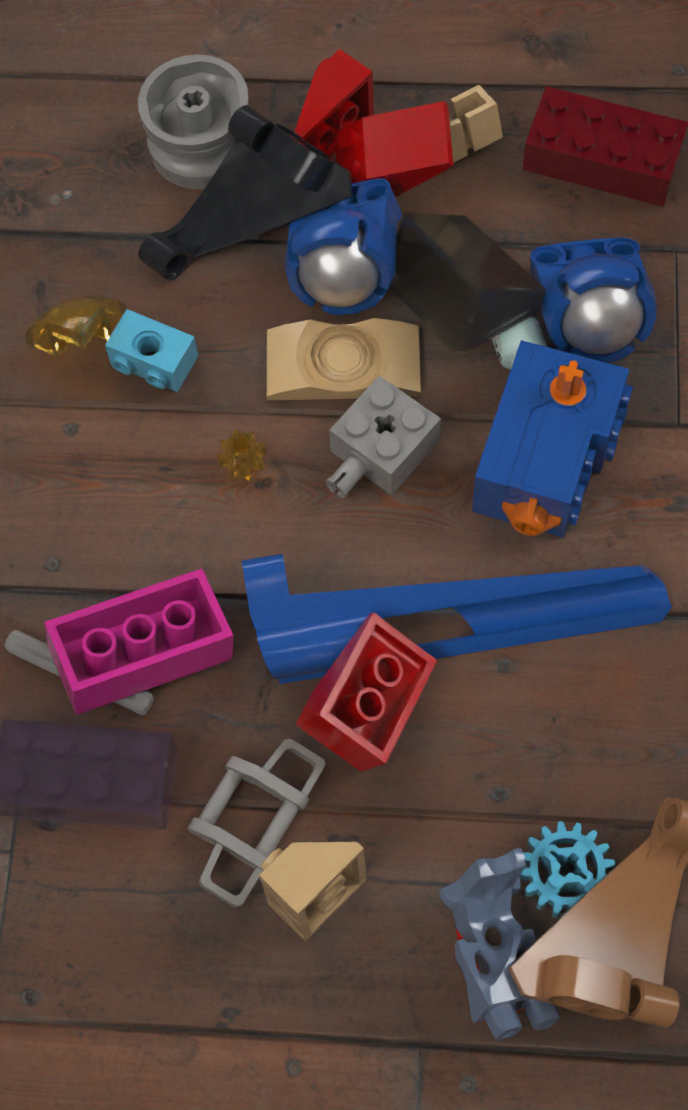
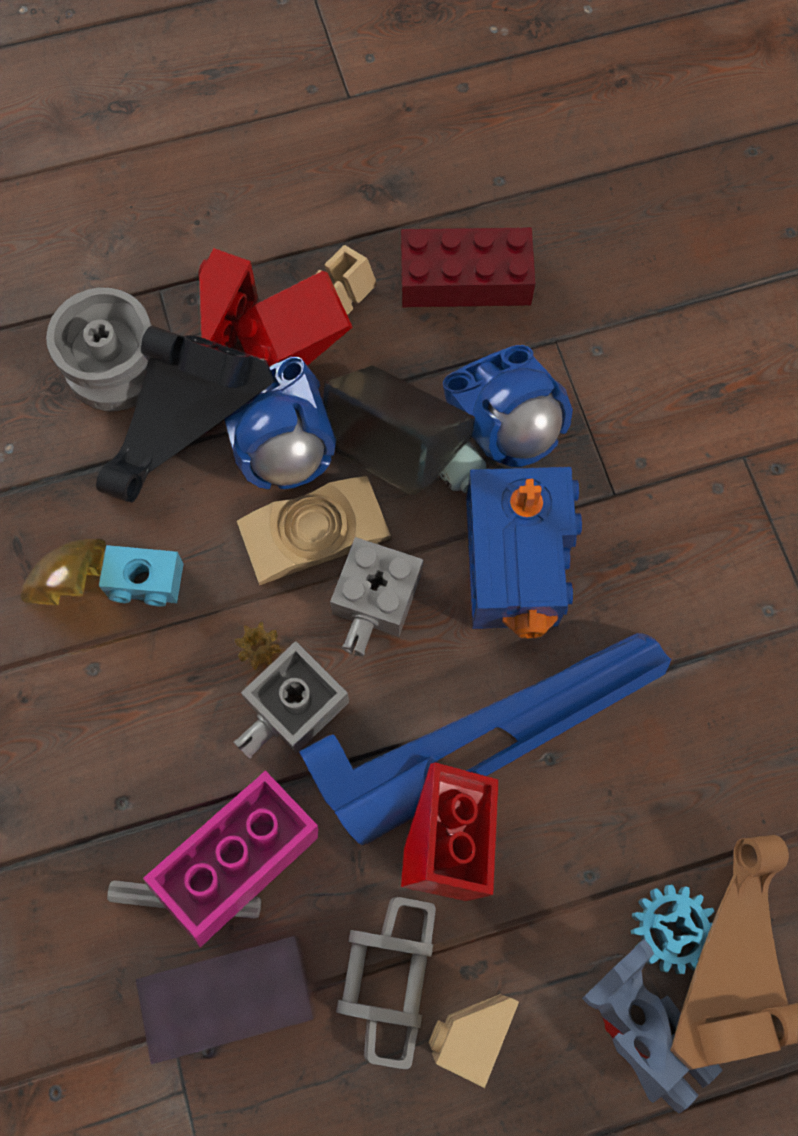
camera: 25 degrees left, 5 degrees up
(236, 506) = (293, 722): none -> light grey brick

